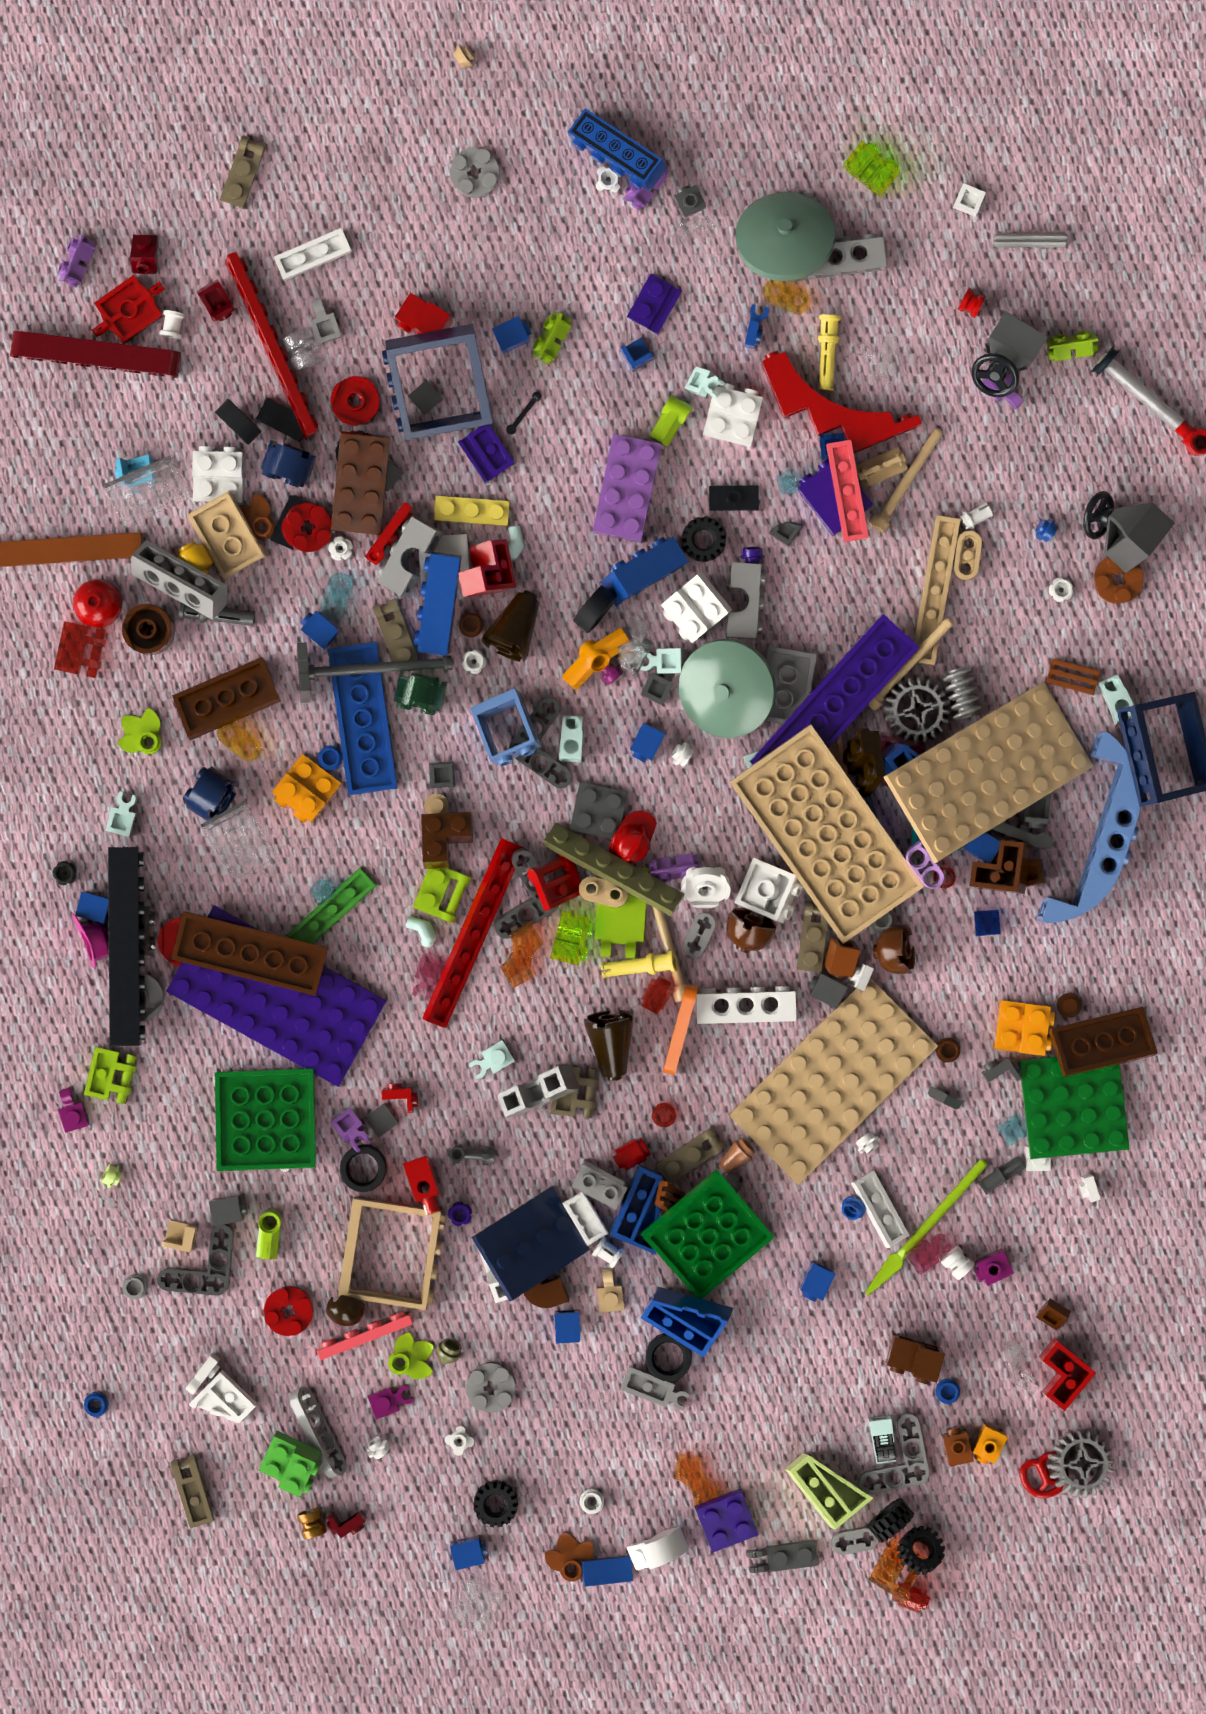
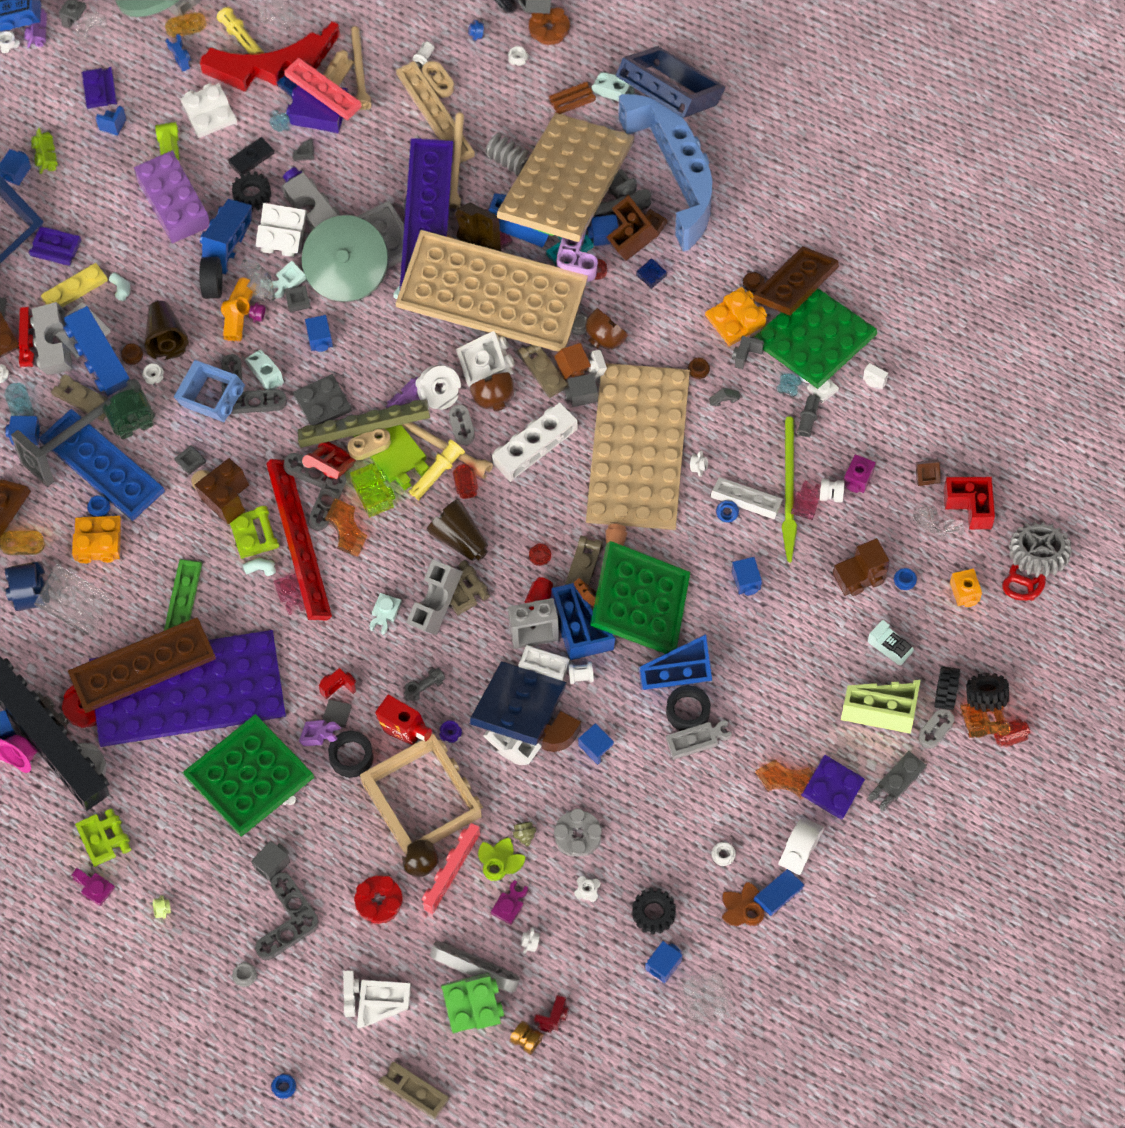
camera: 40 degrees left, 25 degrees down
(180, 1236) = (251, 909): tan panel -> none
(269, 1235) = (318, 855): lime piece -> none
(322, 891) = (164, 593): clear light blue plate -> none
(491, 569) = (115, 306): red brick -> none
(511, 429) = (61, 223): black hinge -> none
(610, 1295) = (608, 702): tan plate -> none
(633, 836) = (360, 396): red piece -> none
(680, 1029) = (501, 486): orange beam -> none
(681, 754) = (349, 324): white plate -> none
(703, 382) = (170, 103): light aqua plate -> none
(910, 1461) = (923, 645): light grey beam -> none
(938, 704) = (485, 178): light grey gear -> none
(957, 1446) = (946, 606): dark orange brick -> none

